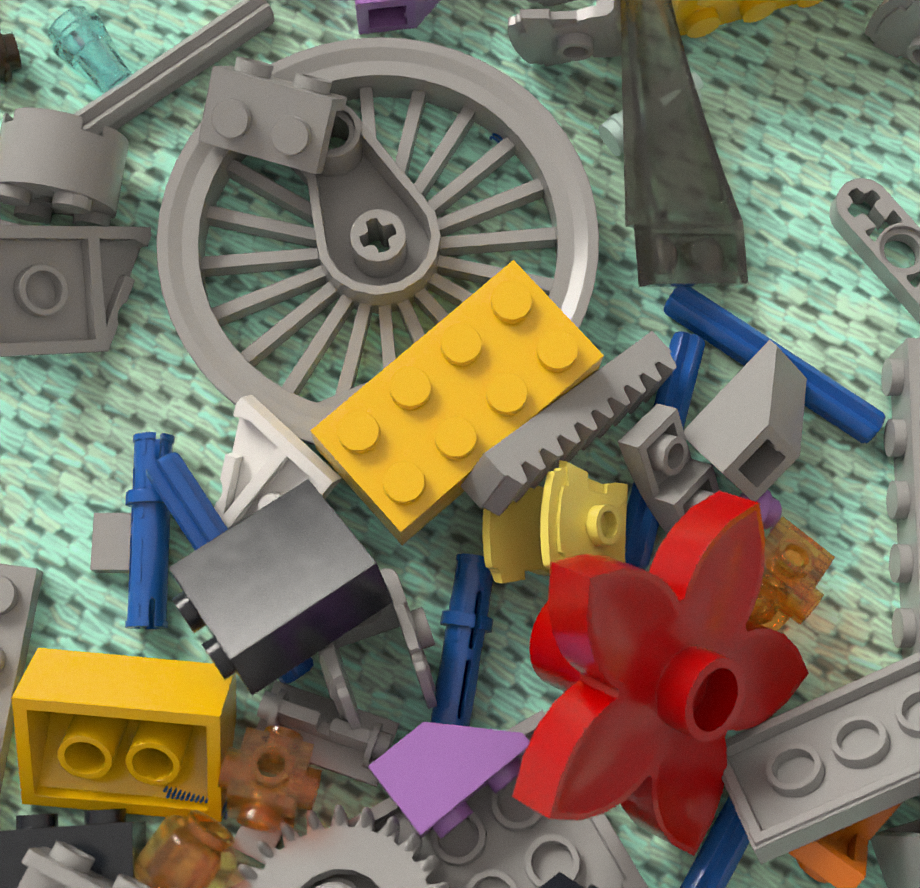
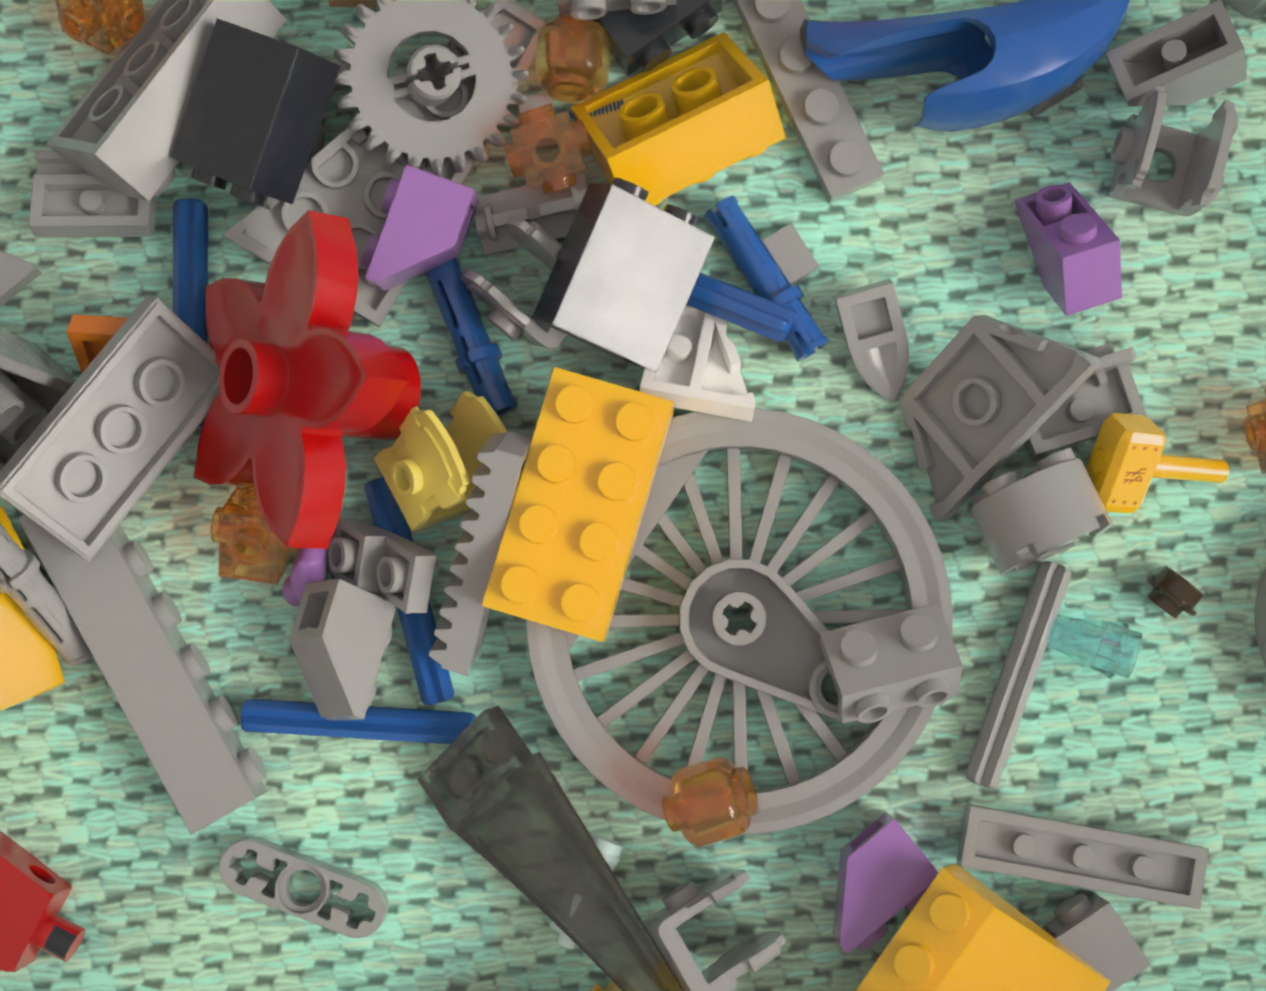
camera: 155 degrees right, 10 degrees up
(87, 418) = (875, 335): none -> light grey plate
(502, 93) = (710, 801): none -> clear orange head

